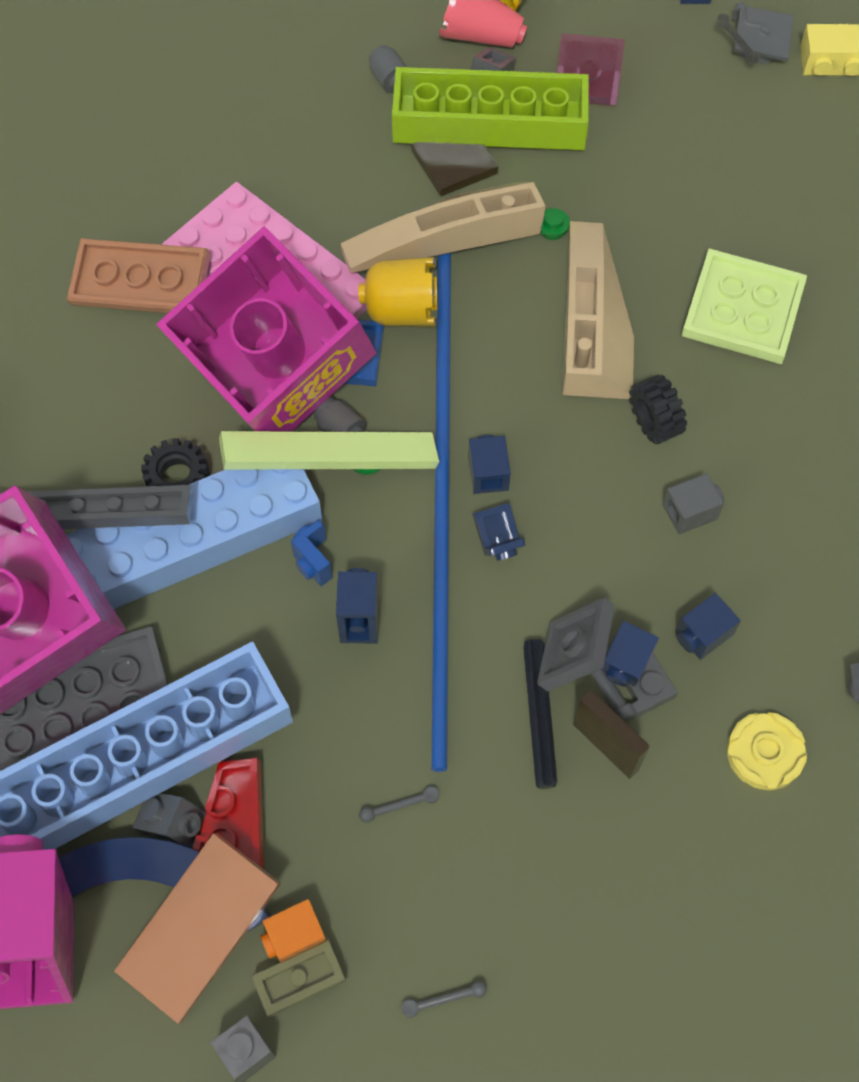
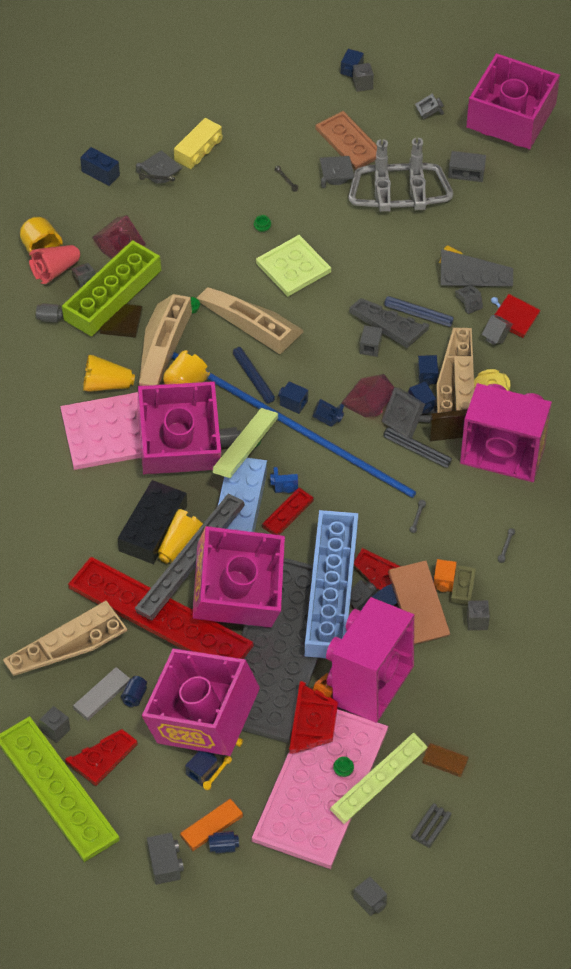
camera: 55 degrees left, 10 degrees down
(99, 421) = (150, 521): none -> black brick
(102, 466) = (178, 535): none -> yellow cone
(135, 275) = (84, 469): nougat tile -> none
(174, 455) = (200, 501): black tyre -> none
(264, 598) = (287, 512): none -> red tile
(324, 194) = (106, 375): none -> yellow cone
(357, 606) = (326, 475): dark blue brick -> none
(491, 384) = (254, 375): none -> dark blue axle
(580, 572) = (369, 395): none -> clear pink slope
(655, 841) = (505, 431): none -> dark pink brick
(658, 409) = (320, 323): black tyre -> none
(720, 686) = (456, 376): none -> tan wedge
(755, 514) = (394, 326): none -> dark grey wing
(786, 217) = (262, 223): none -> green plate
(819, 538) = (419, 311): none -> dark blue axle

